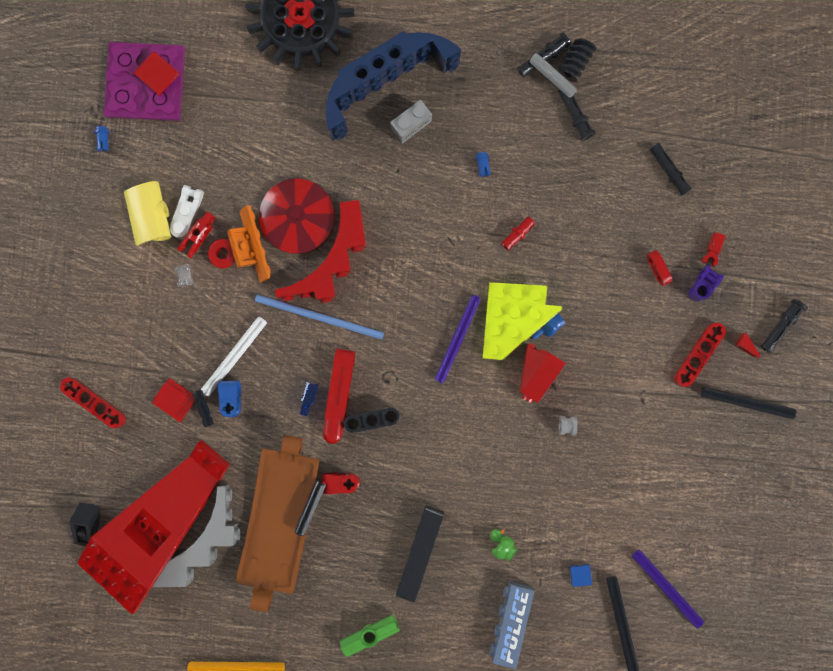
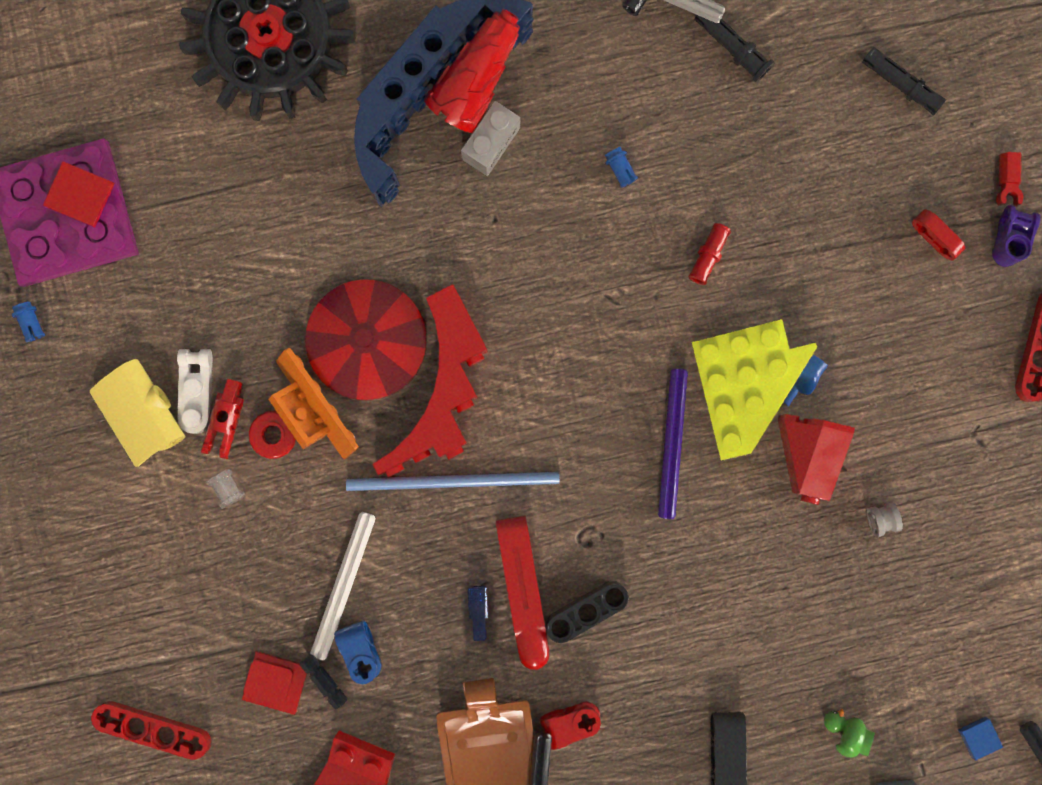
camera: 20 degrees left, 0 degrees up
(407, 84) = (469, 83): none -> red cone

